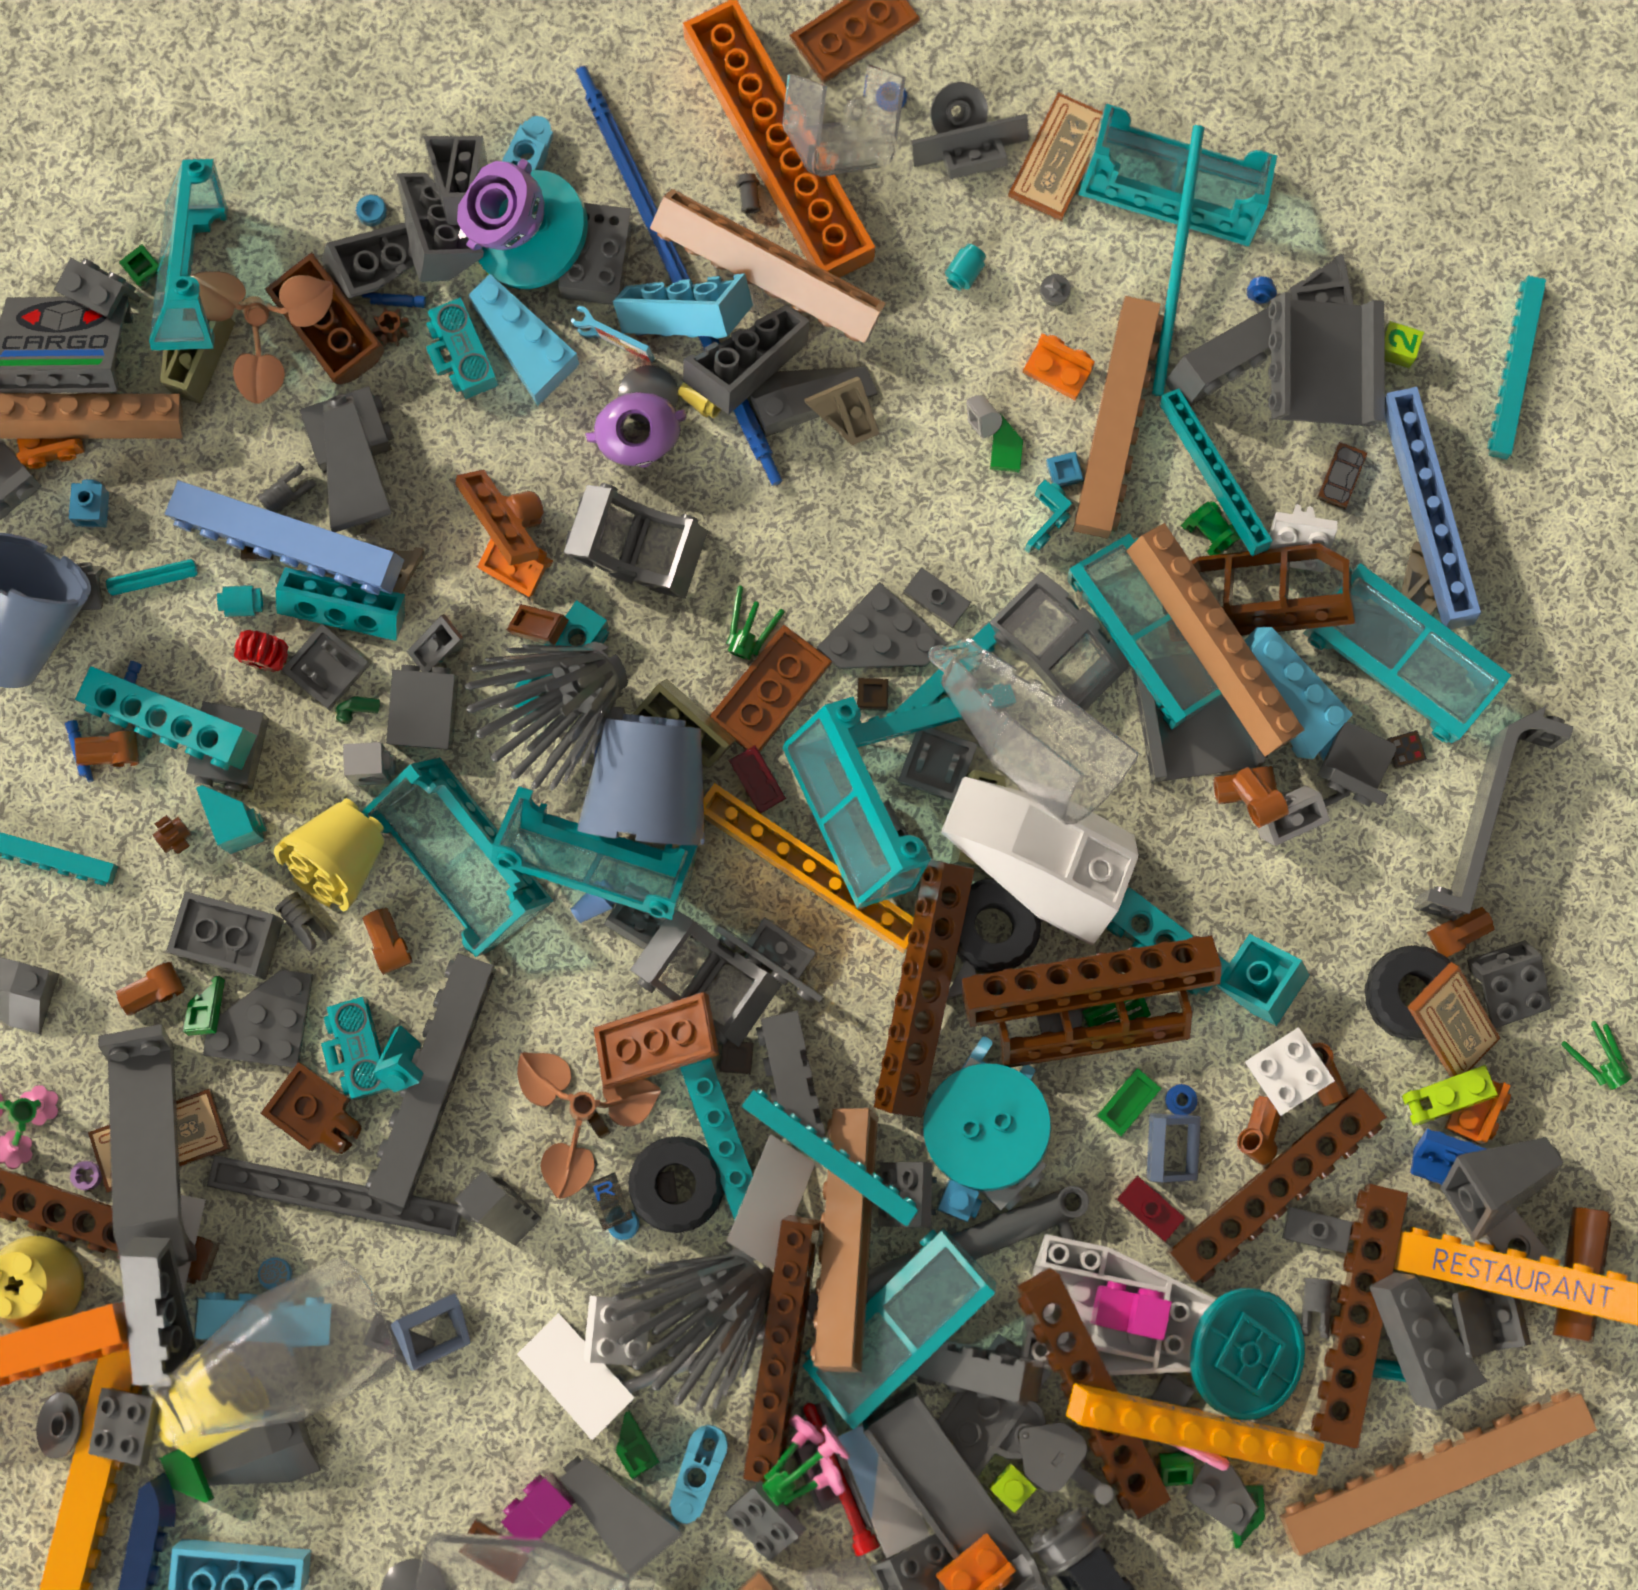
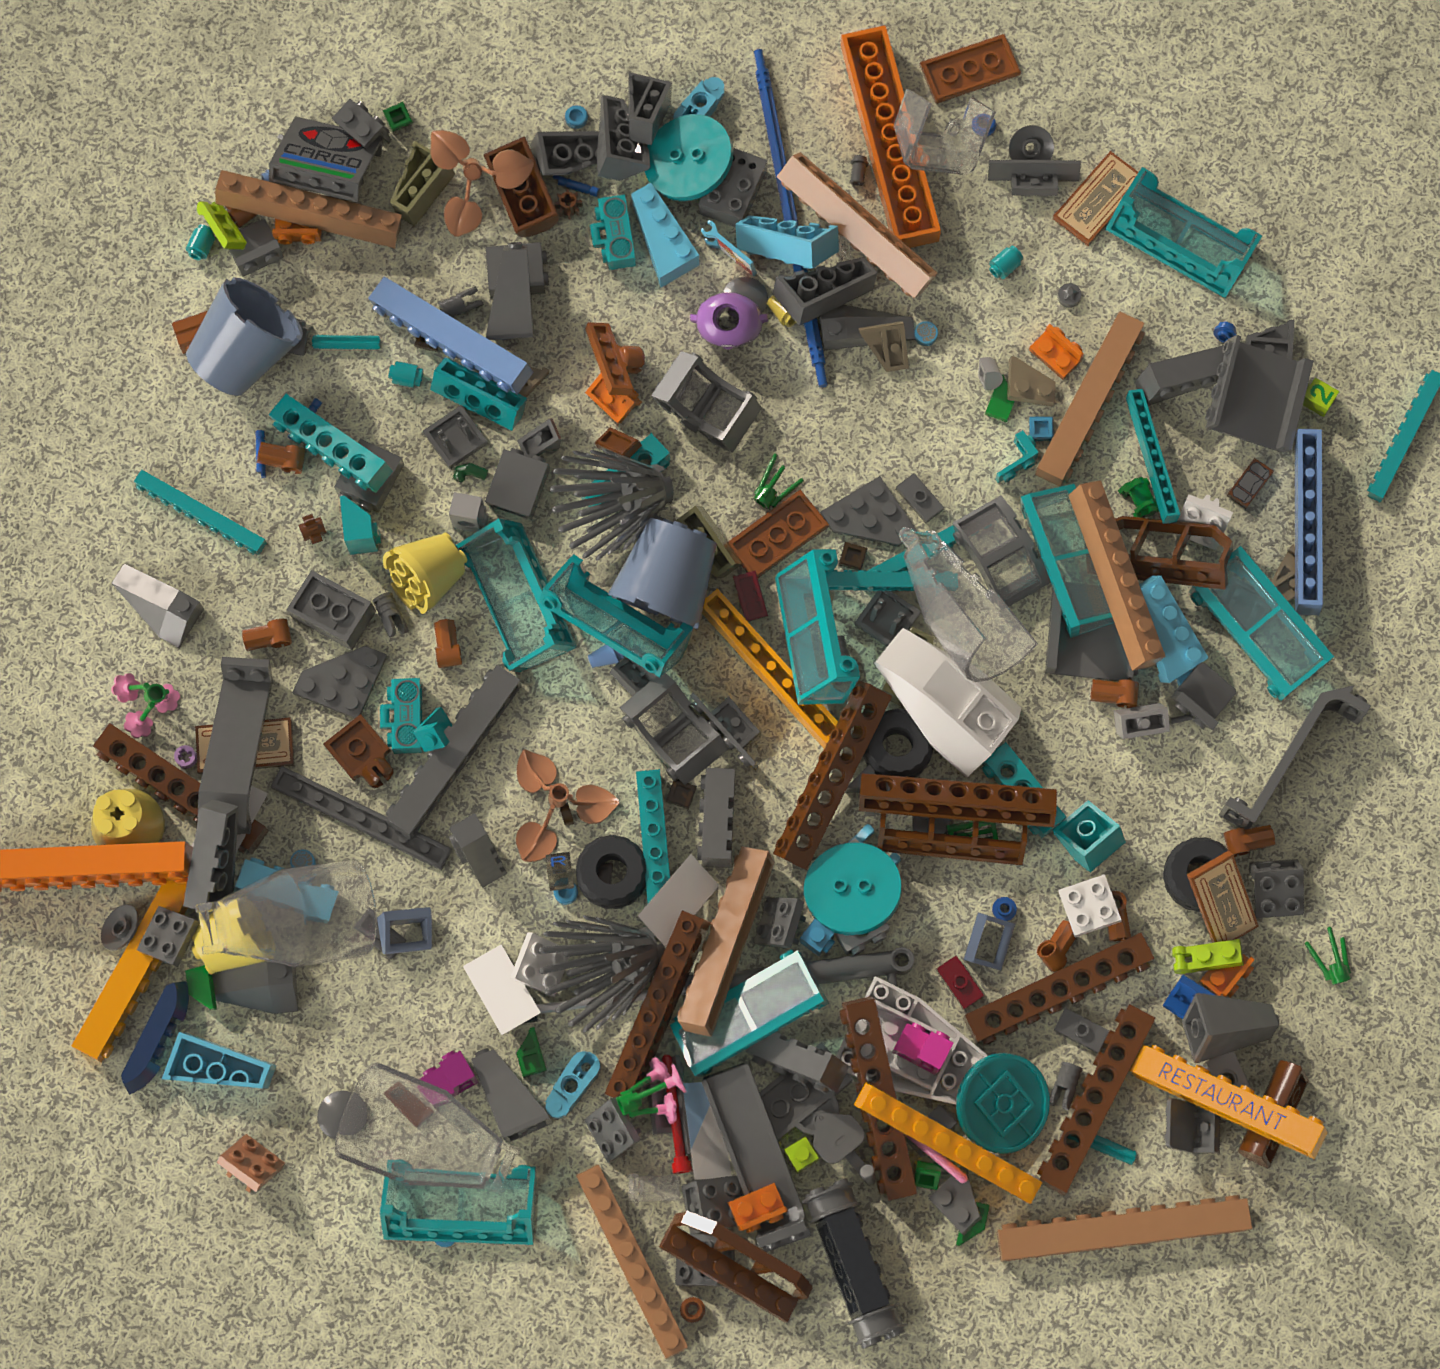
camera: 20 degrees right, 5 degrees down
(88, 504) = (315, 278): dark azure brick -> none
(190, 209) = (418, 152): teal windscreen -> none
(204, 1010) = (301, 661): green tile -> none
(261, 650) = (411, 413): red gear -> none
(481, 204) = (657, 129): medium lavender piece -> none
(656, 1041) = (624, 763): dark orange tile -> none
(835, 1161) = (728, 874): teal piece -> none
(889, 383) = (926, 333): none -> dark azure tile
(1035, 417) = (1029, 384): none -> dark tan wing
(1128, 1102) = (964, 901): green tile -> none
(1178, 260) = (1166, 294): teal piece -> none
(1262, 803) = (1120, 702): dark orange piece -> none
(1408, 749) = (1245, 696): tile -> none
(1424, 1343) = (1137, 1128): dark grey wedge -> none

